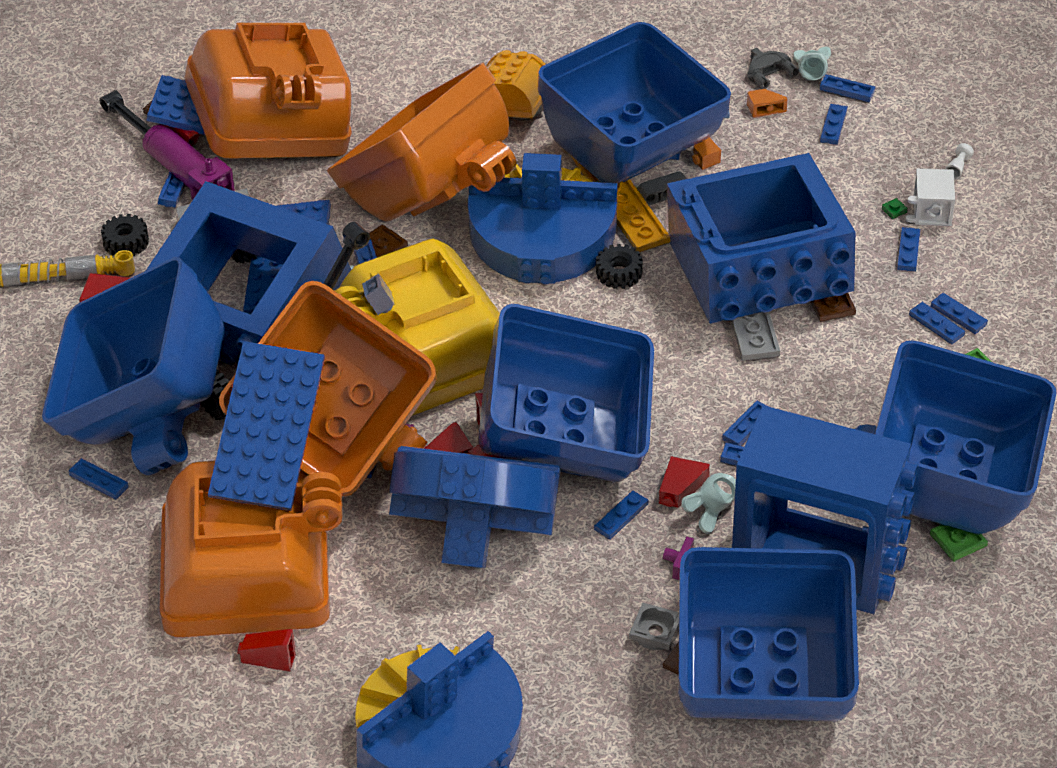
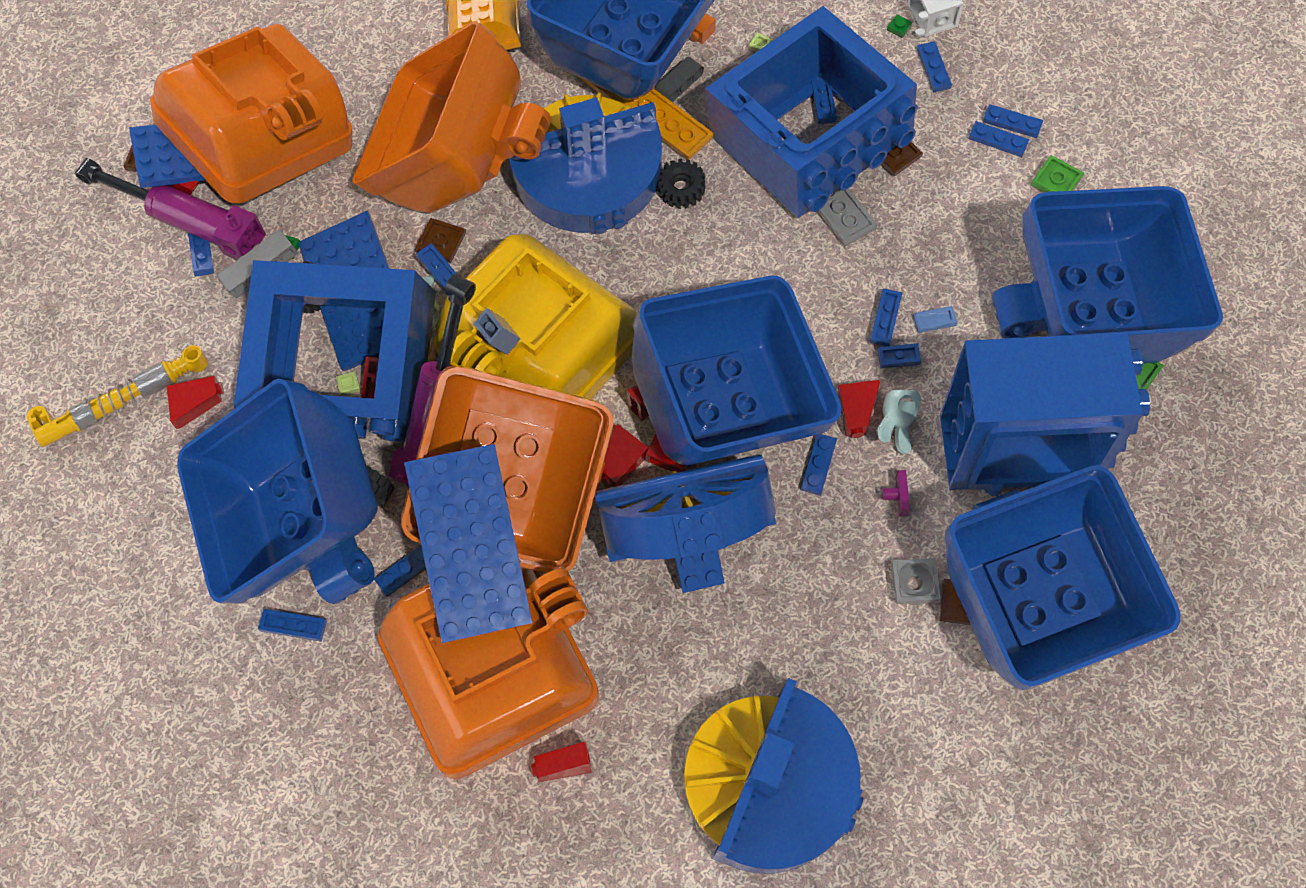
camera: 20 degrees left, 20 degrees up
(133, 242) = (187, 333): black tyre -> none

